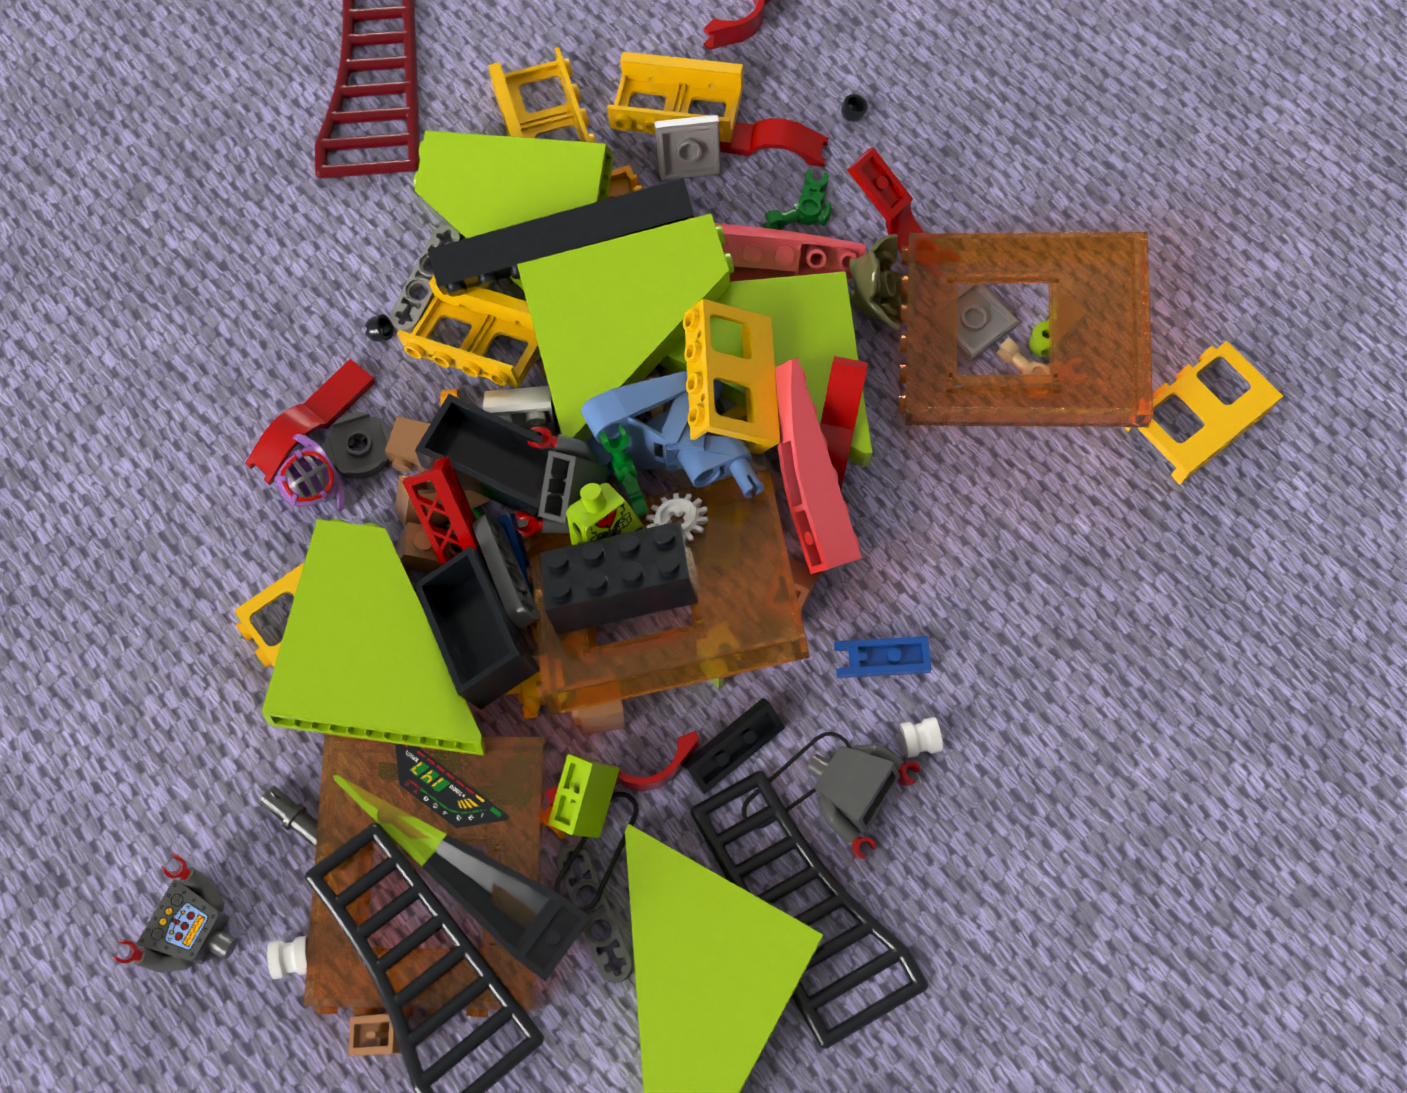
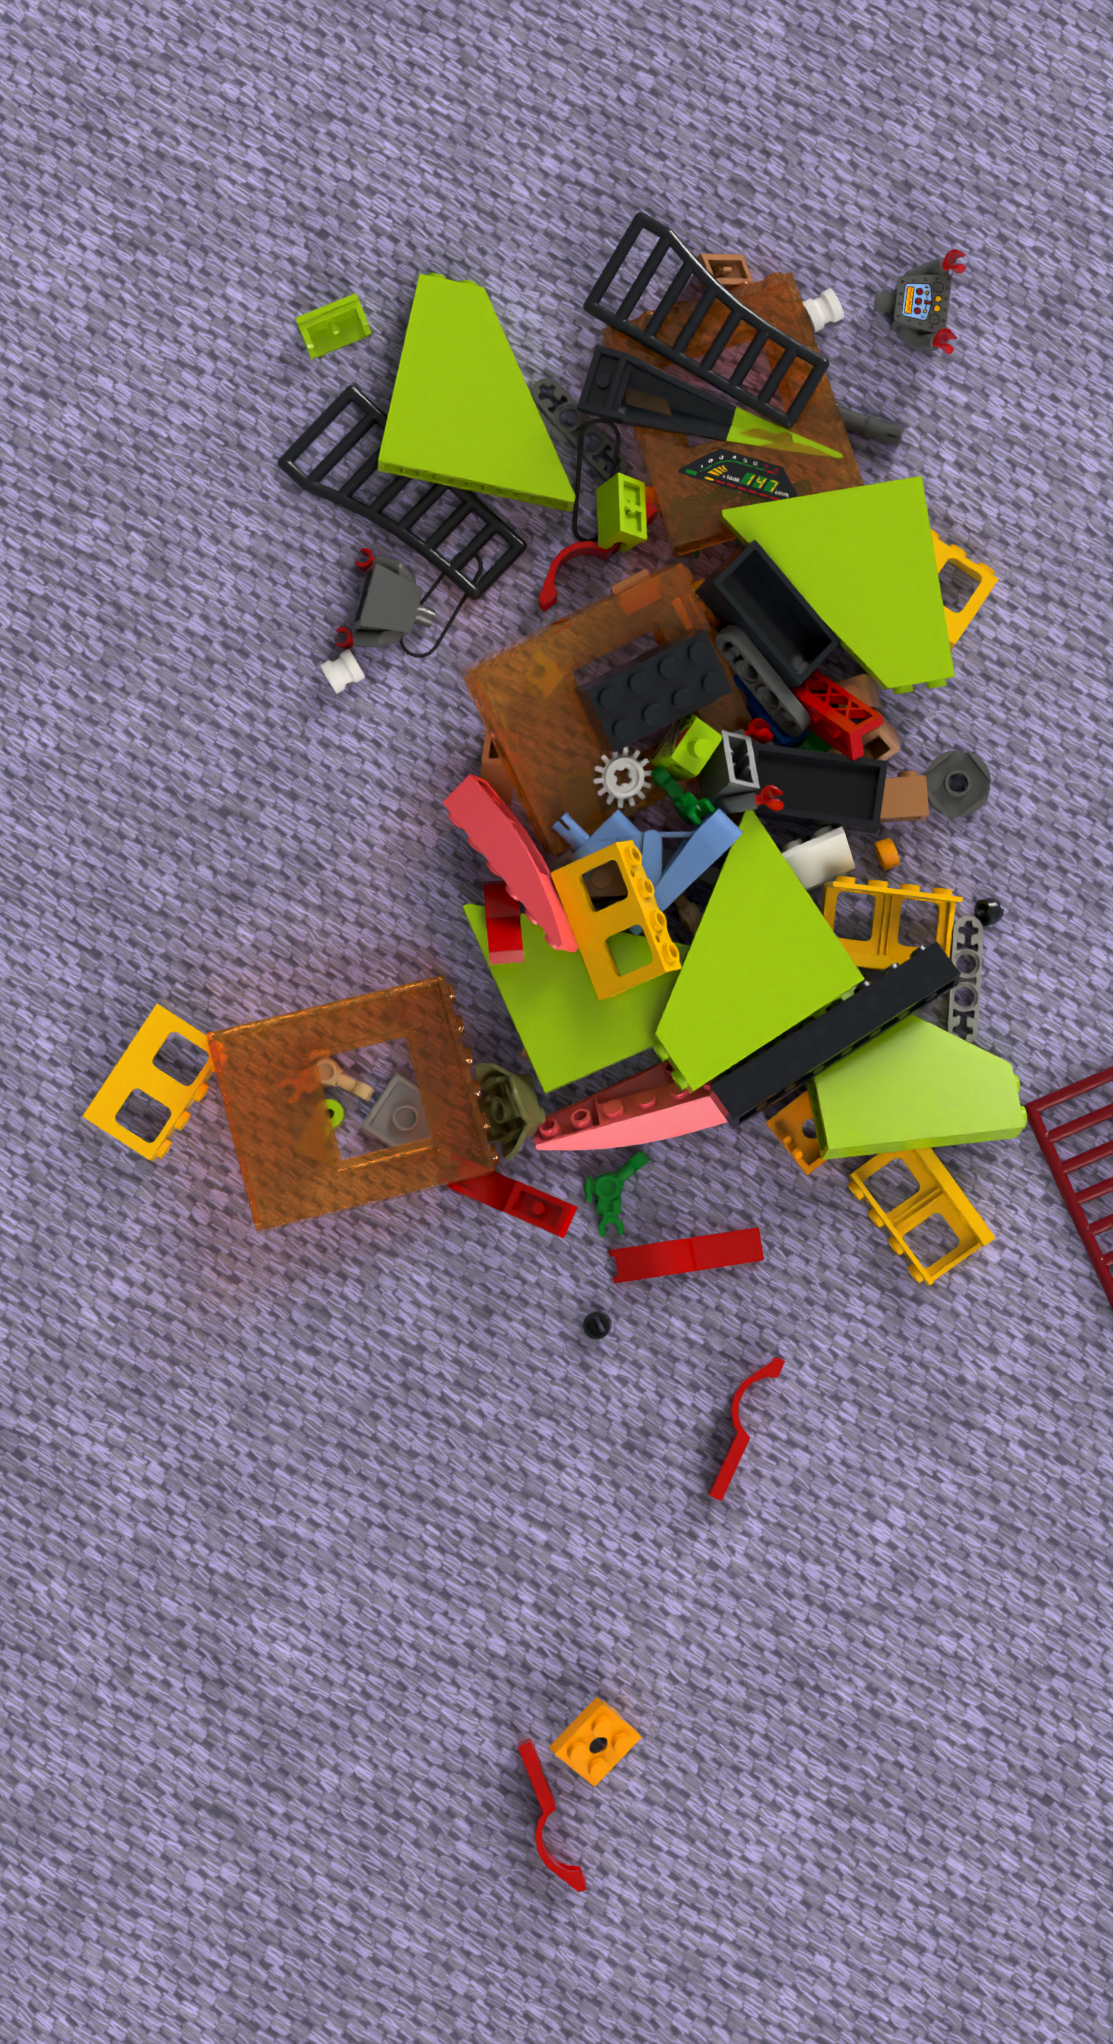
camera: 165 degrees right, 15 degrees up
(309, 477) = (986, 728): medium lavender piece -> none
(314, 414) = (1015, 797): red piece -> none
(680, 83) = (786, 1288): yellow window -> none
(688, 147) = (752, 1205): light grey tile -> none
(733, 746) = (507, 609): black plate -> none
(885, 657) = (395, 737): blue hinge -> none

